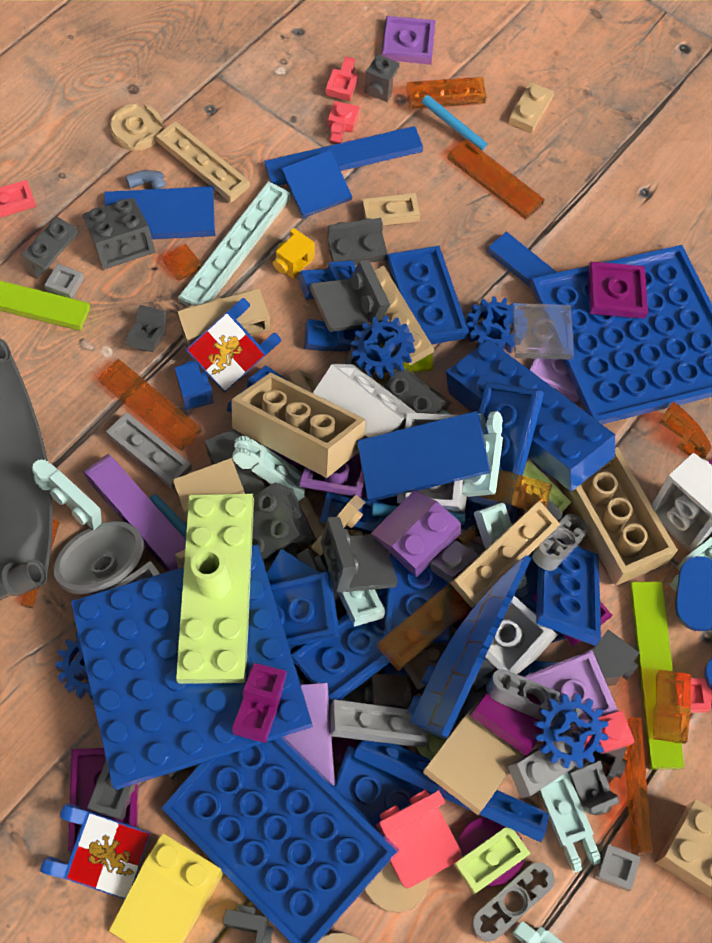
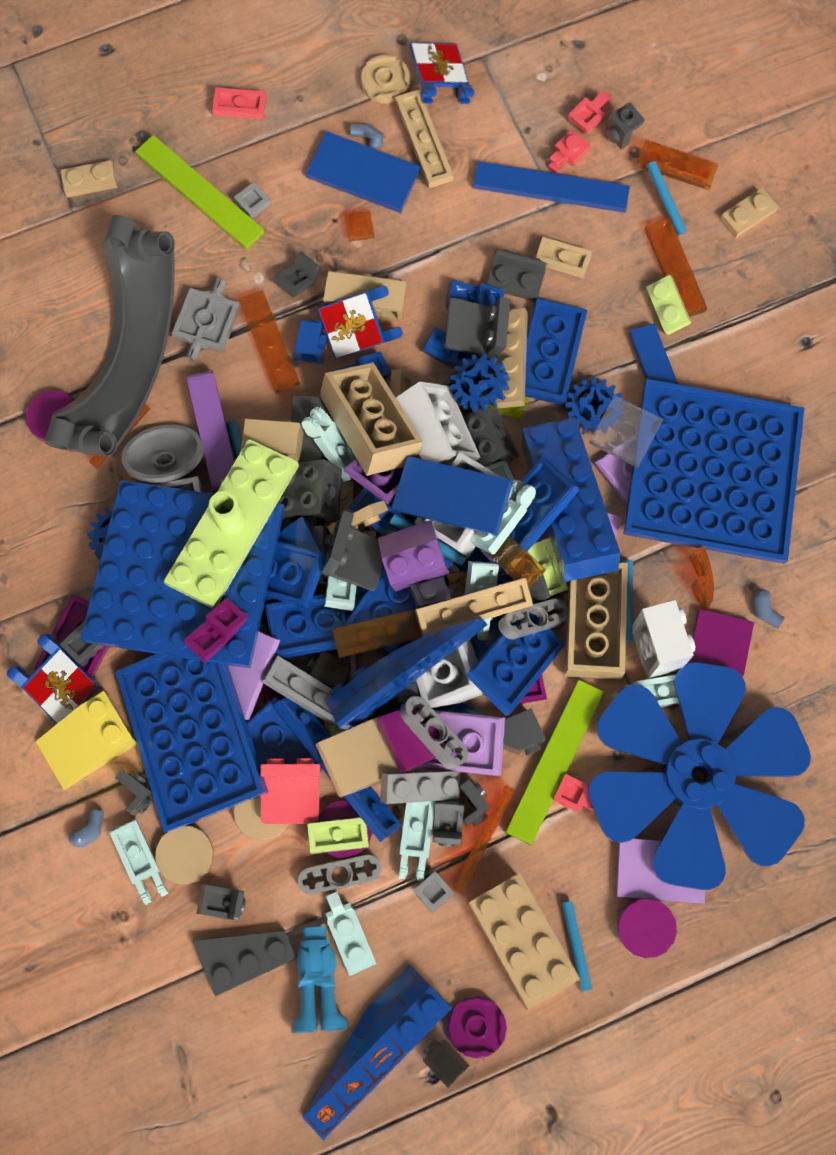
camera: 30 degrees right, 10 degrees up
(48, 246) = (253, 163): dark grey bracket -> none
(66, 492) = (162, 388): light aqua hinge -> none
(75, 411) = (206, 320): none -> light grey plate
(119, 233) = (318, 175): dark grey bracket -> none
(148, 450) = (247, 381): light grey plate -> none
(184, 96) = (440, 67): none -> flag
(235, 246) = (412, 230): light aqua tile -> none
(294, 254) = (455, 262): yellow brick -> none
(316, 184) = (511, 204): blue tile -> none
(408, 39) = (674, 95): medium lavender tile -> none
(509, 210) = (668, 304): none -> yellowish green plate
(573, 744) = (432, 767): blue gear -> none
(617, 290) = (716, 423): magenta tile -> none
(618, 732) = (480, 788): coral plate -> none
(672, 706) = (547, 794): clear orange slope -> none

